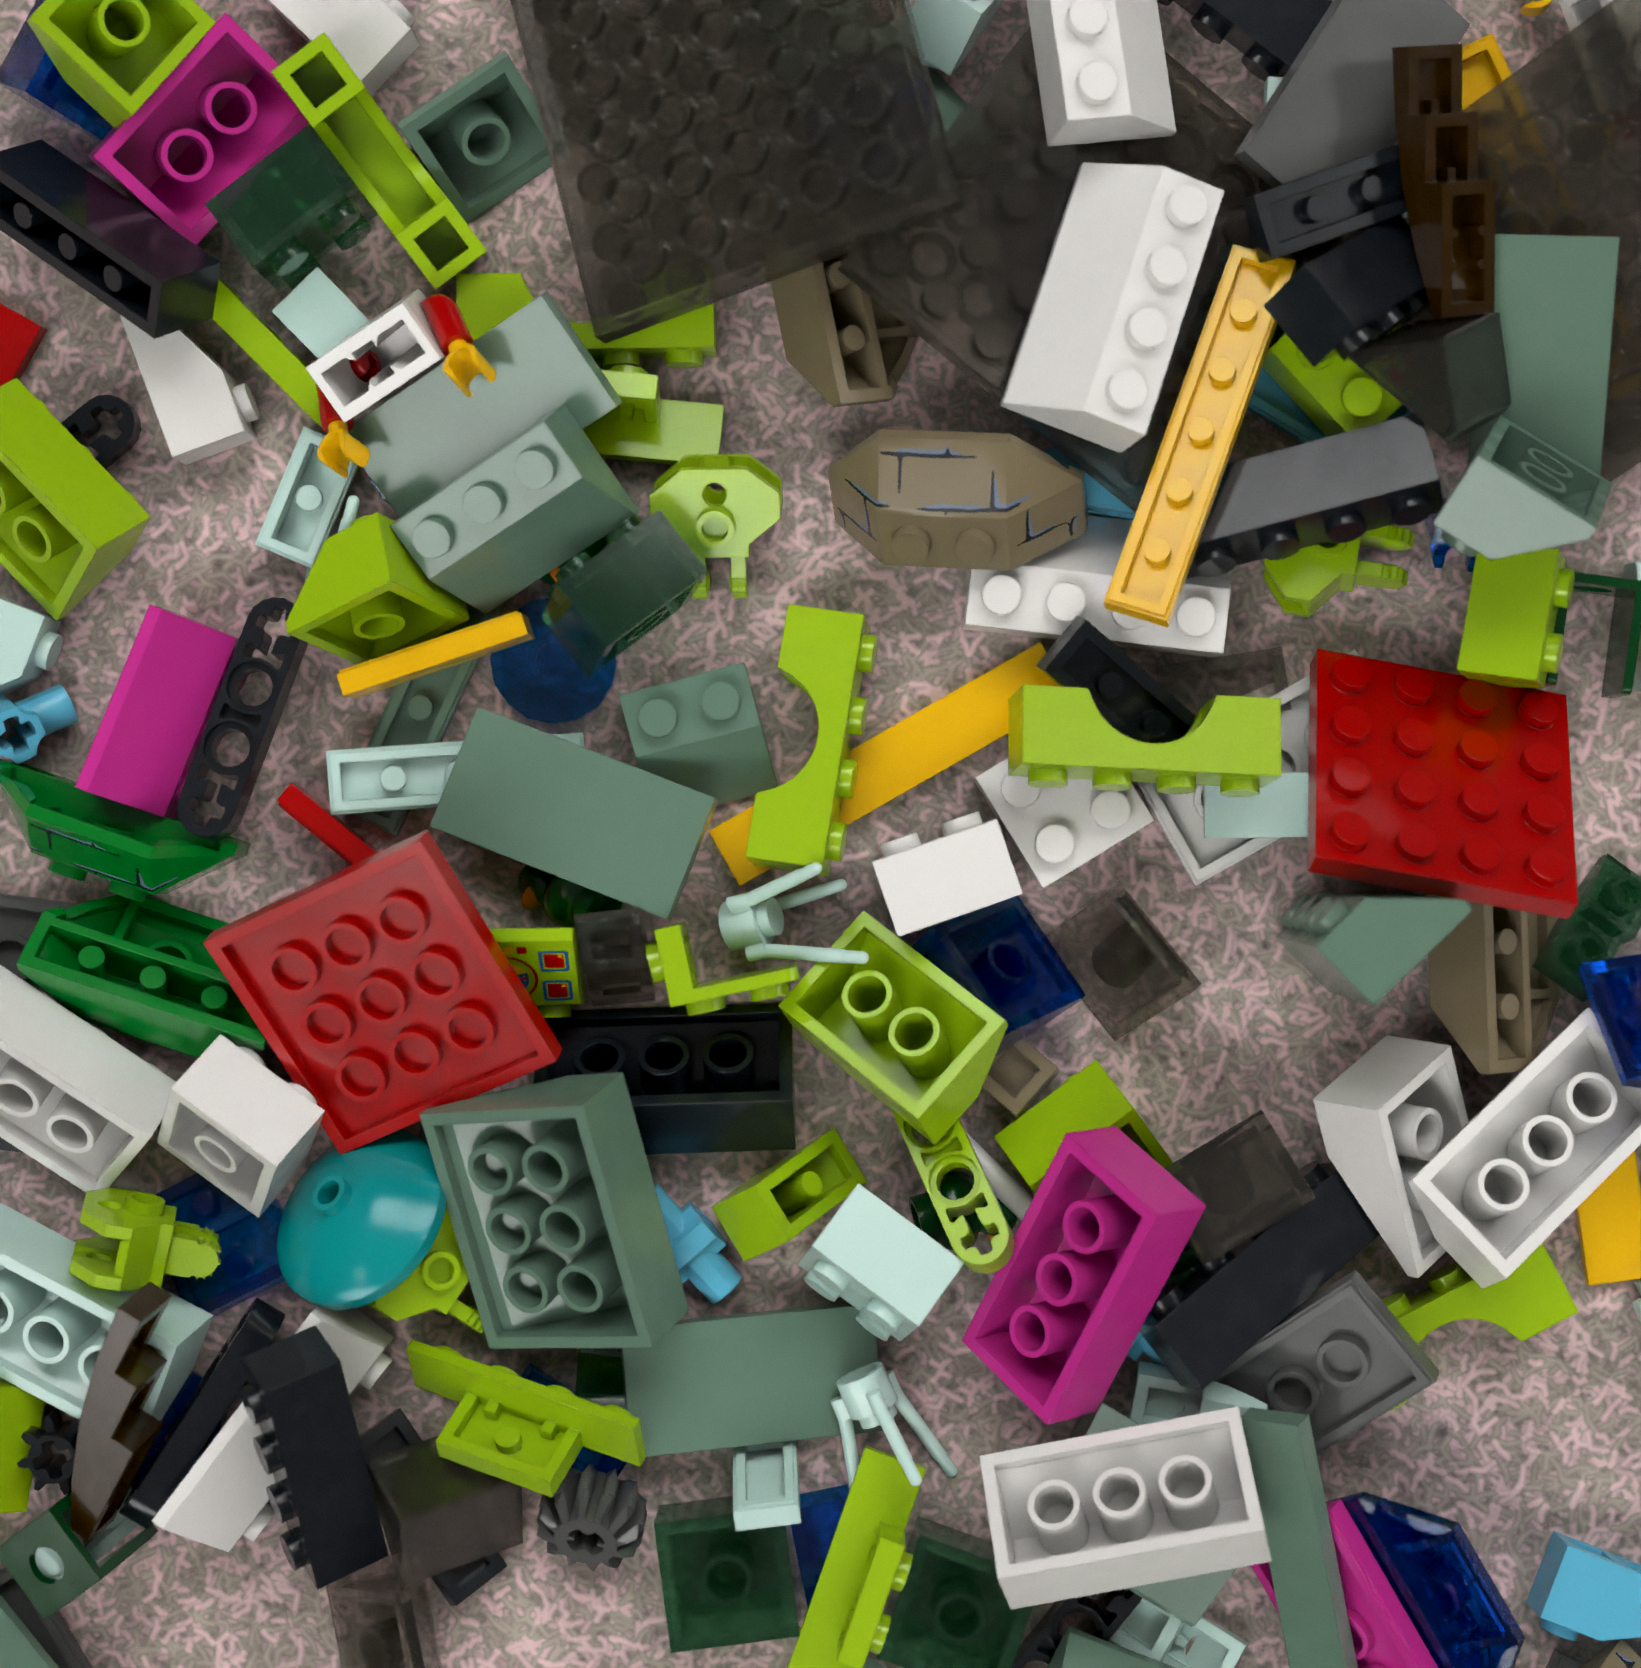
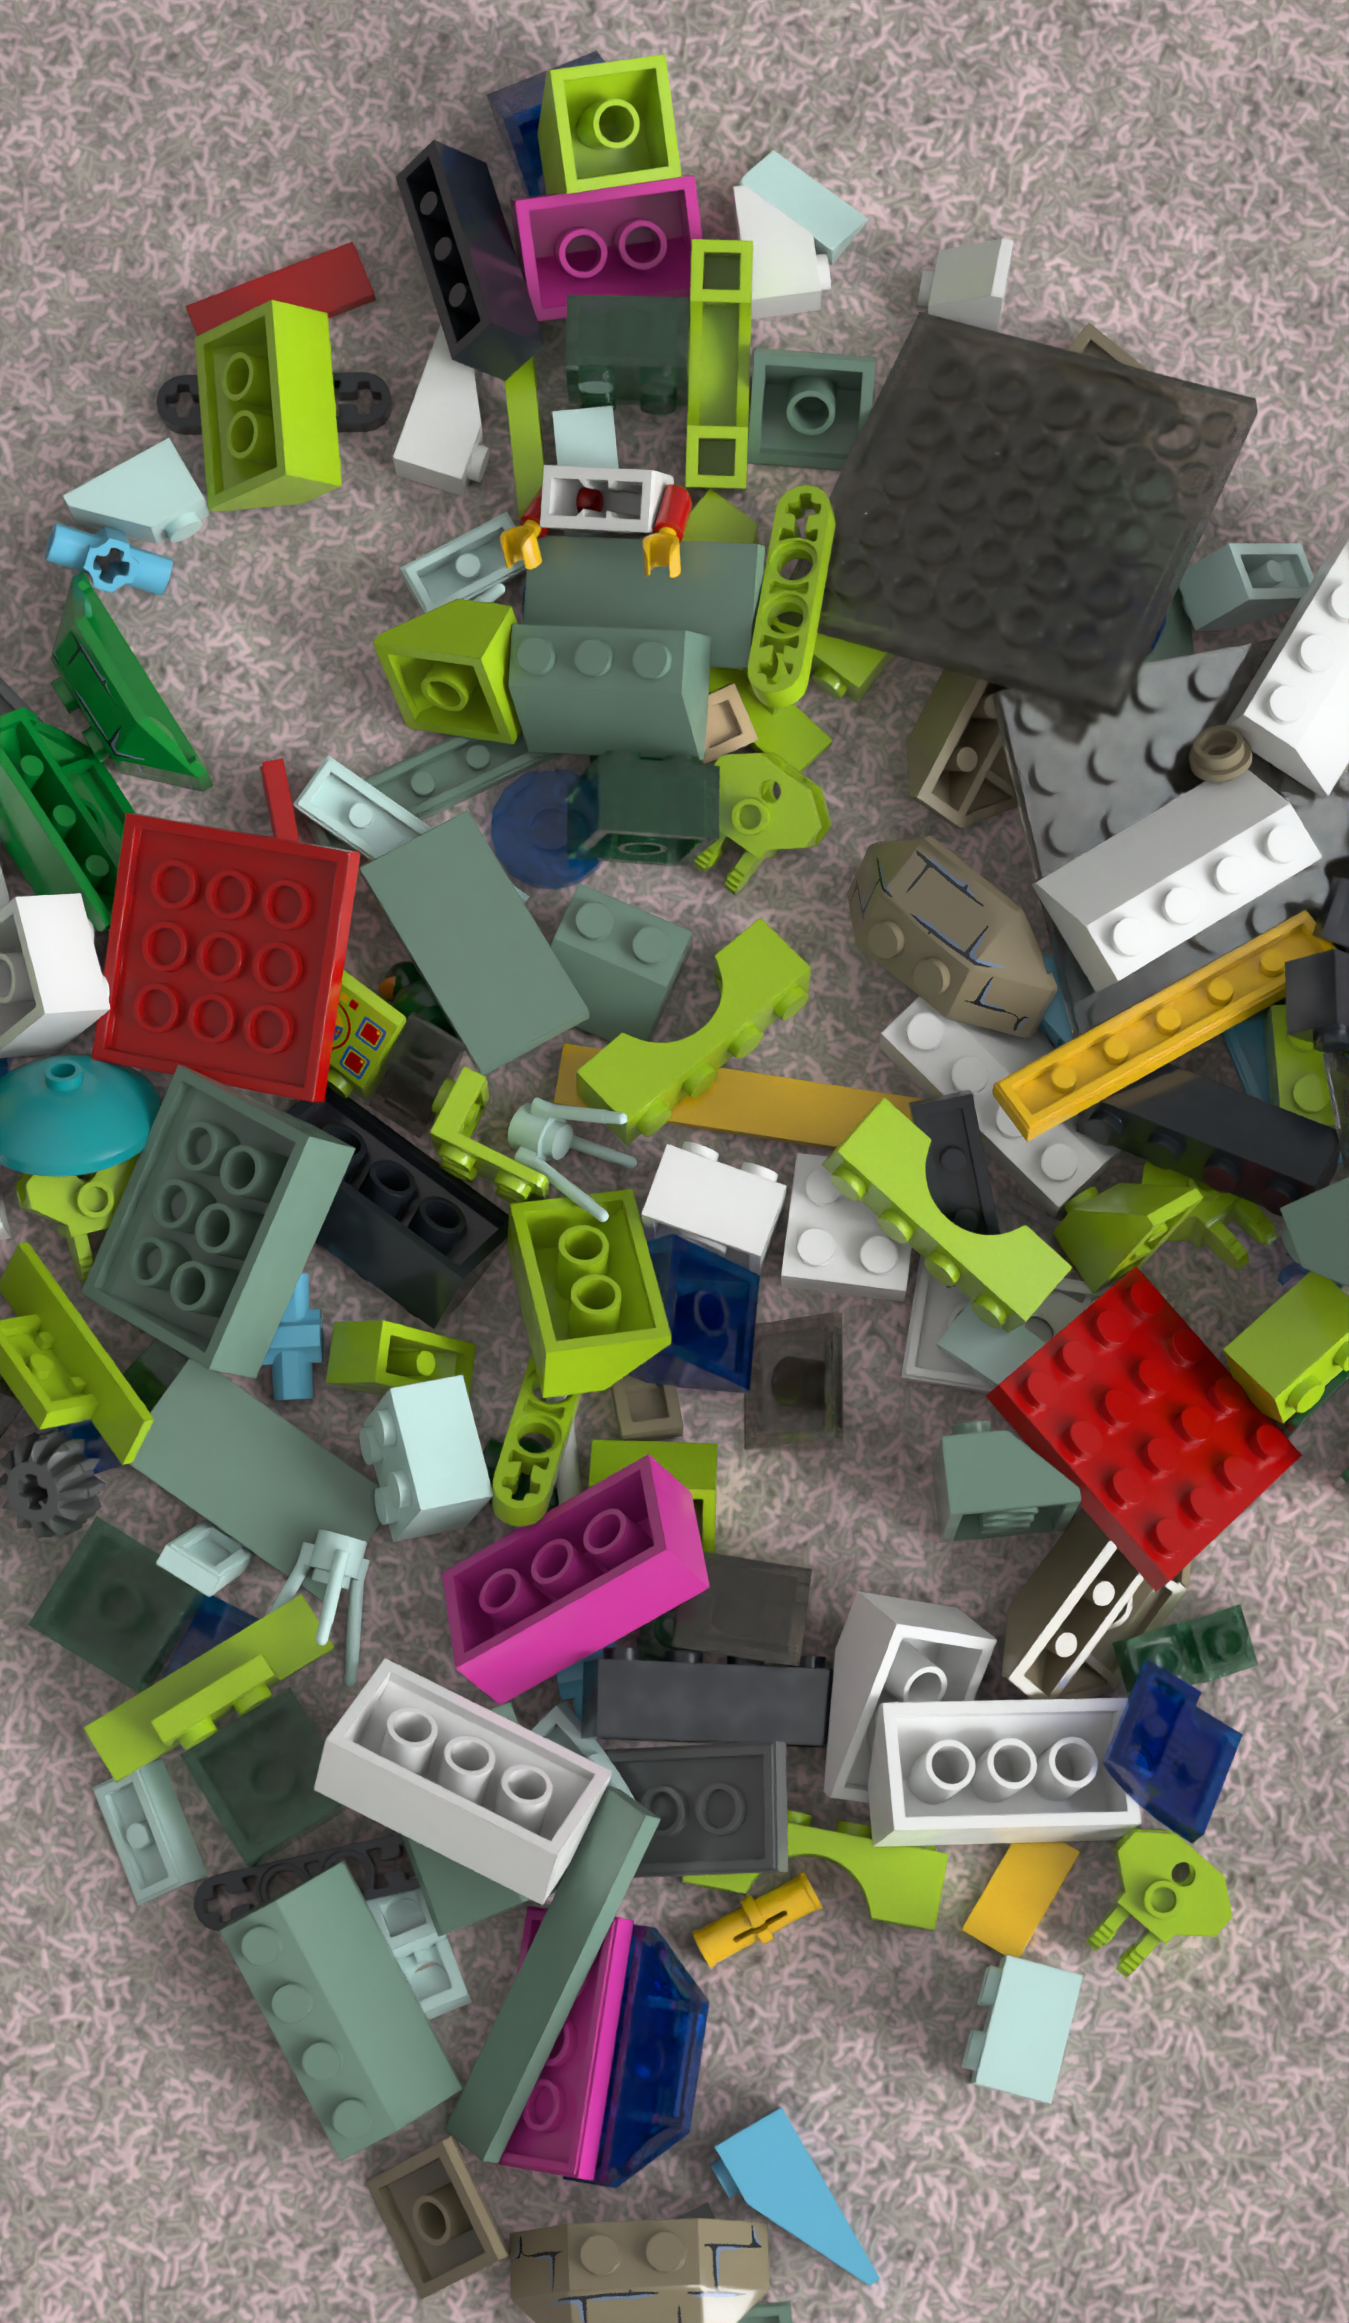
camera: 45 degrees right, 10 degrees down
(158, 713) = (233, 636): dark pink slope -> none
(233, 715) = (282, 675): black beam -> none
(435, 655) = (467, 750): yellow tile -> none
(607, 311) = (786, 595): none -> lime beam
(631, 463) = (727, 723): none -> tan plate
(1067, 169) = (1220, 754): none -> dark tan plate
(1290, 628) = (1121, 1227): none -> lime slope
(1423, 1411) = (757, 1919): none -> yellow pin

